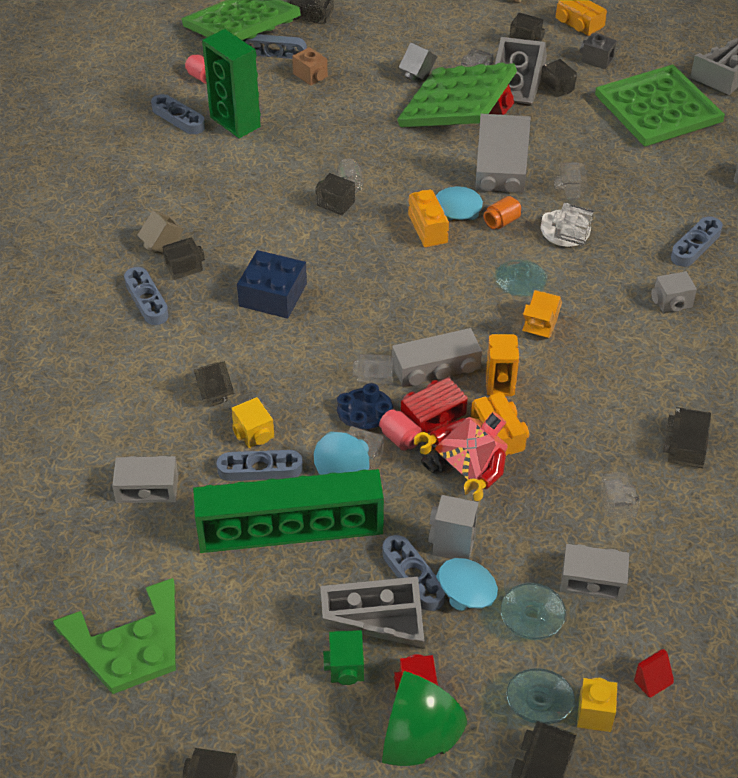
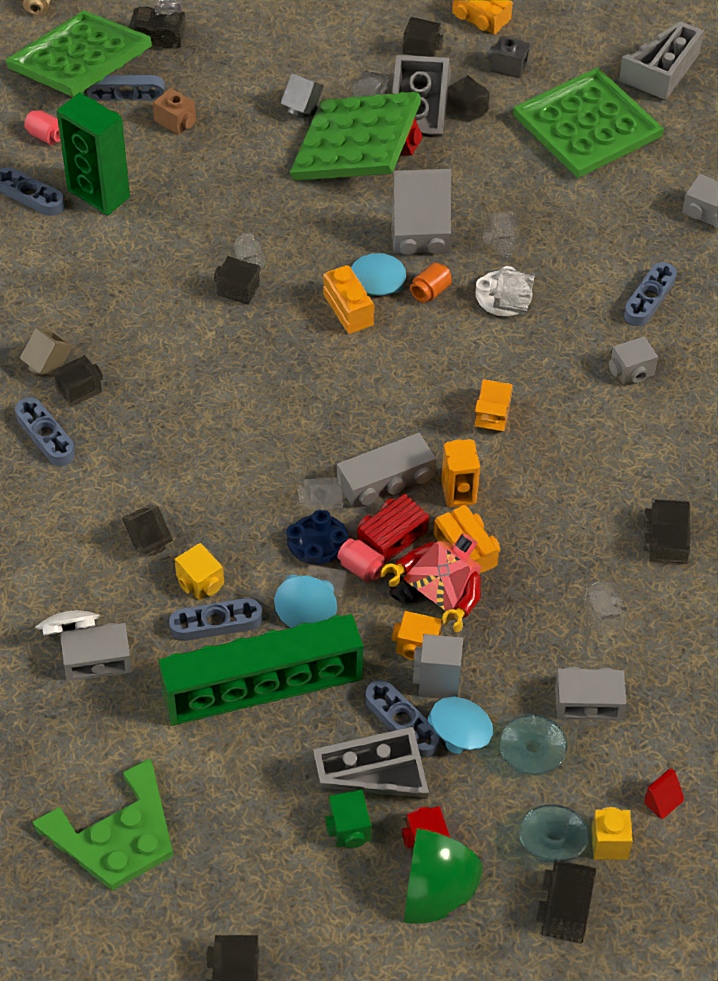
camera: 10 degrees left, 5 degrees up
(124, 448) = (54, 623): none -> white dish
(272, 284) = (187, 402): dark blue brick -> none
(431, 494) = (410, 632): none -> light orange brick
(520, 277) = (459, 367): clear light blue dish -> none

